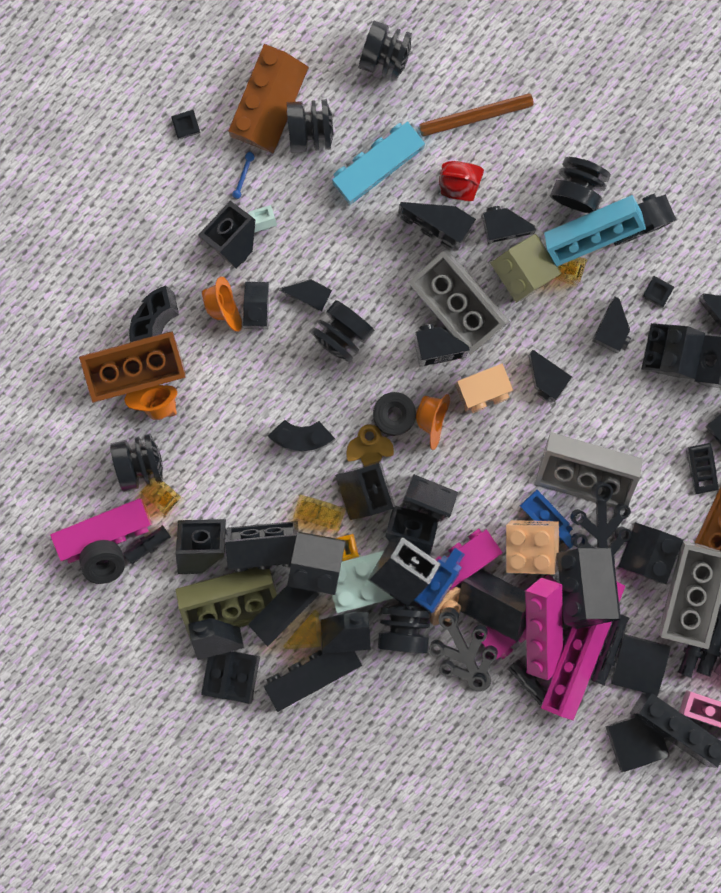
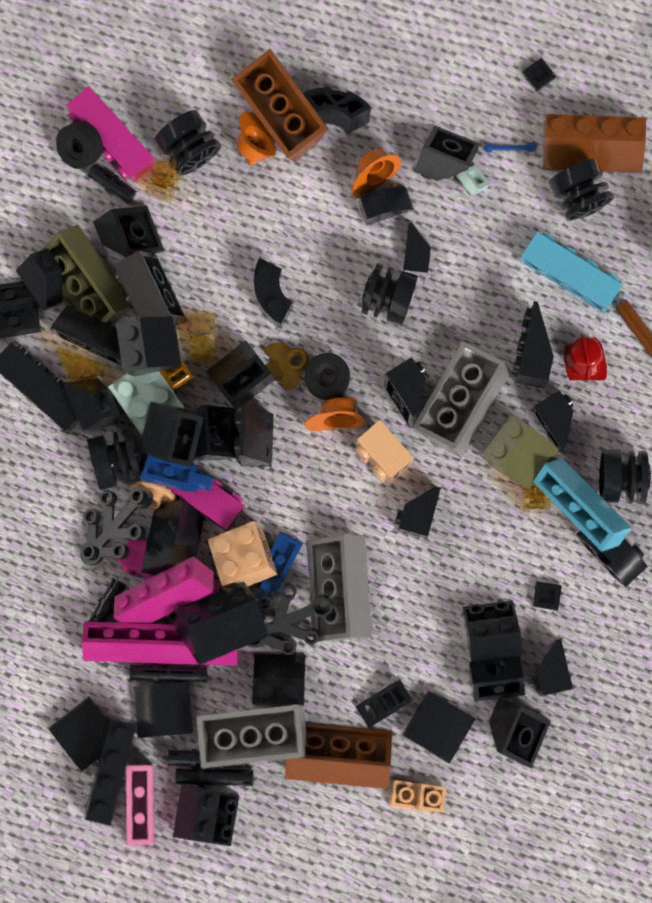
camera: 70 degrees right, 5 degrees down
(613, 328) = (491, 562): black slope -> none

